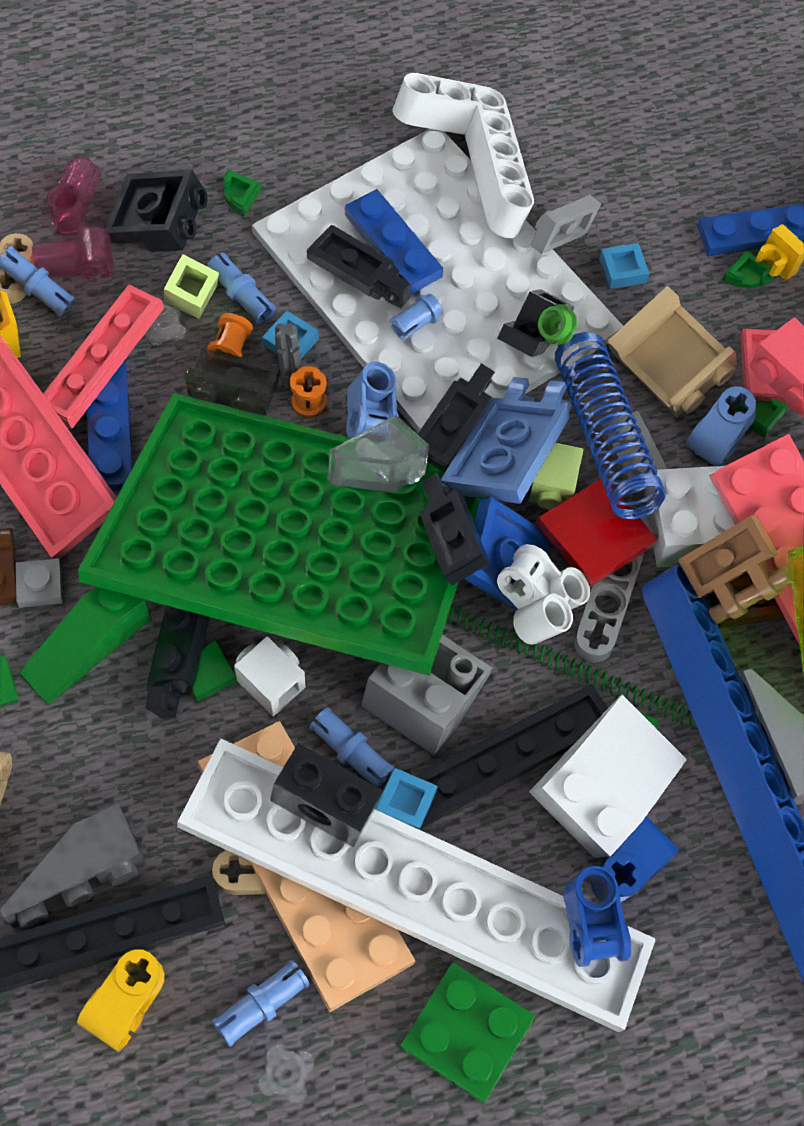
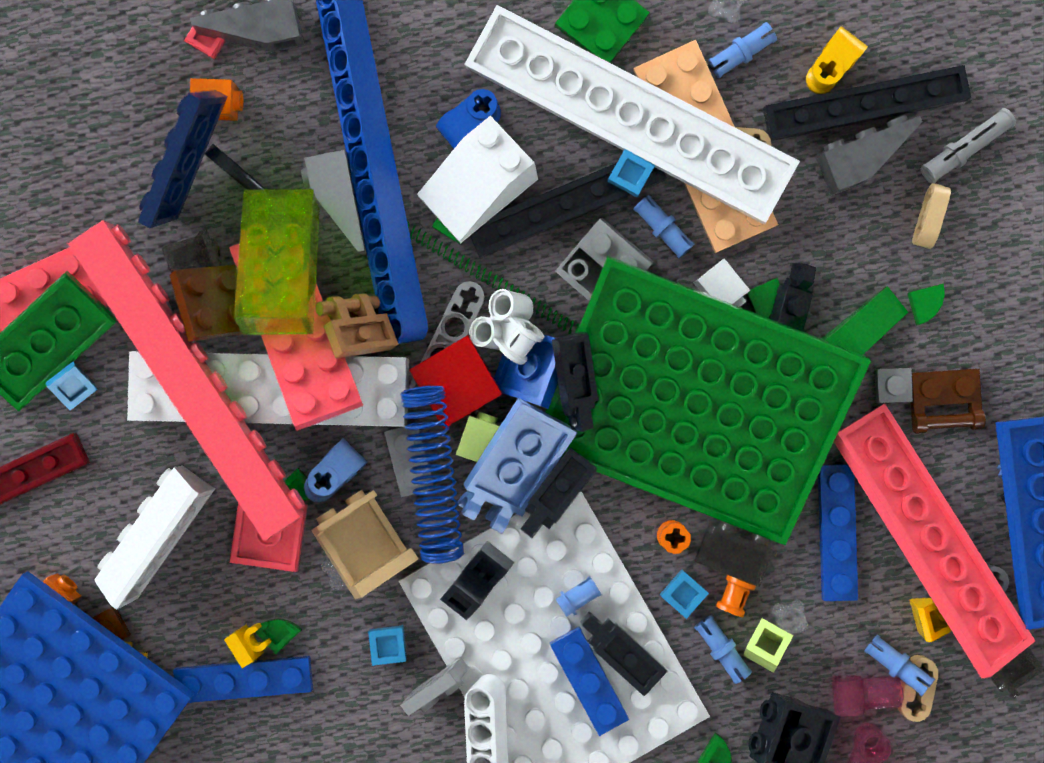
camera: 170 degrees left, 25 degrees up
(102, 353) = (845, 583): coral tile -> none
(288, 351) = (690, 566): dark grey axle -> none
(325, 795) = (693, 165): black brick -> none
(371, 398) = (622, 514): medium blue piece -> none
(379, 458) = (622, 455): clear slope -> none
(549, 324) = (462, 567): bright green plate -> none
(596, 920) = (508, 68): blue piece -> none

